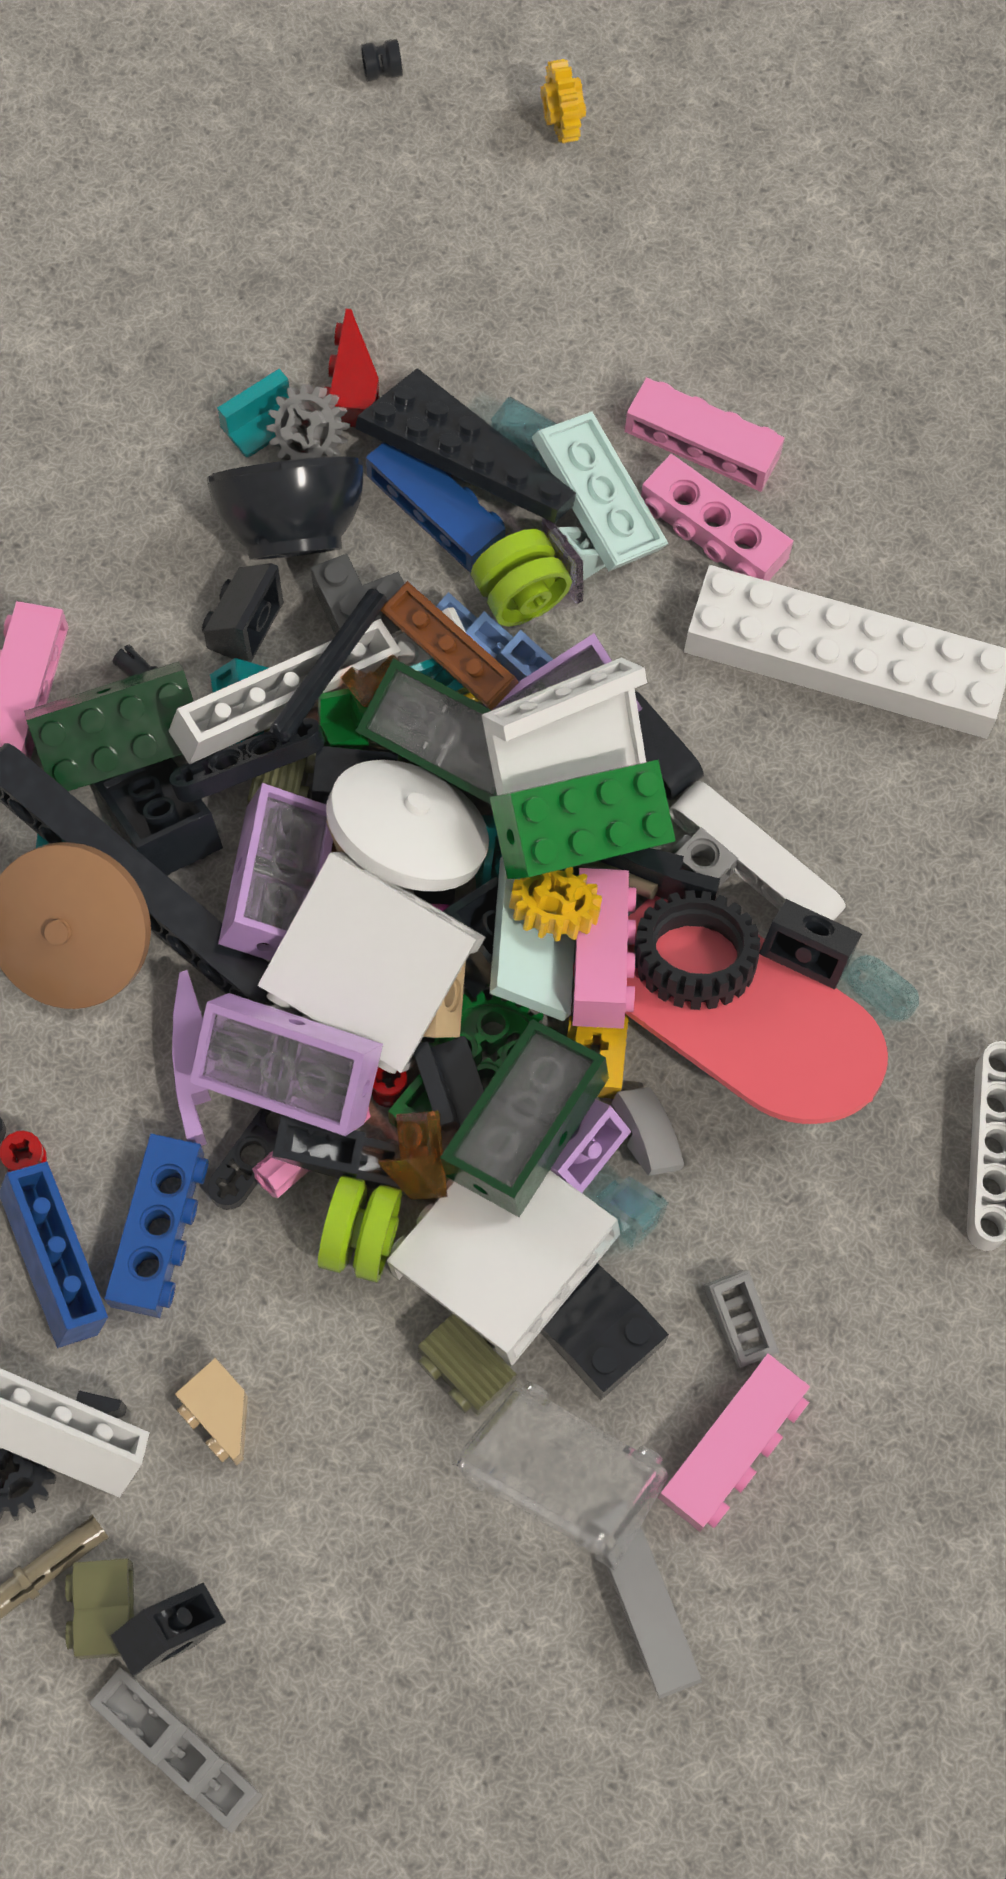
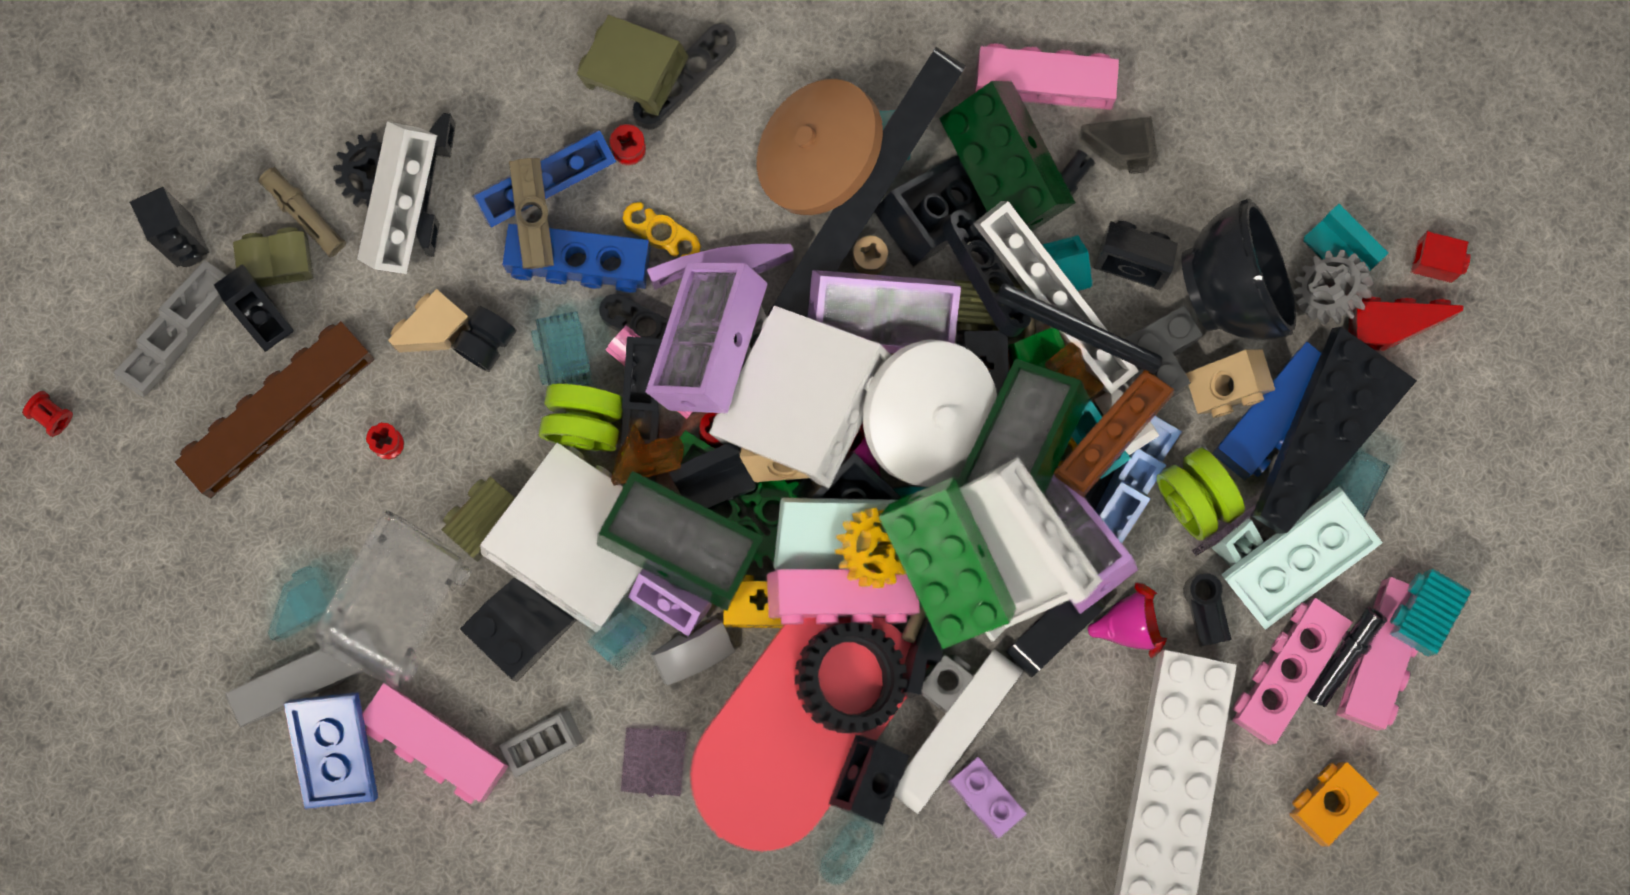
camera: 85 degrees right, 10 degrees up
(47, 1730) = (169, 227): none -> black brick
(72, 1260) = (529, 190): none -> dark tan piece
(113, 613) = (1122, 143): none -> clear smoke slope
(135, 1146) = (644, 230): none -> yellow piece
(212, 897) = (868, 262): none -> tan wheel
(244, 1344) = (484, 338): none -> black wheel
(272, 1252) = (562, 350): none -> clear light blue brick
(287, 327) = (1441, 257): none -> red brick
(301, 1618) = (273, 410): none -> reddish brown brick
(352, 1465) = (383, 430): none -> red bush
(392, 513) = (1211, 381): none -> tan brick
(550, 1593) = (301, 603): none -> clear light blue slope
(644, 593) = (1207, 614): none -> black piece
(661, 665) = (1132, 622): none -> dark pink hat
(669, 376) = (1429, 611): none -> teal brick
(695, 451) = (1354, 645): none -> black pin
(736, 1566) = (331, 750): none -> tile
(769, 1192) = (653, 761): none -> piece
(833, 831) = (987, 798): none -> lavender brick
(853, 482) = (1353, 797): none -> light orange brick

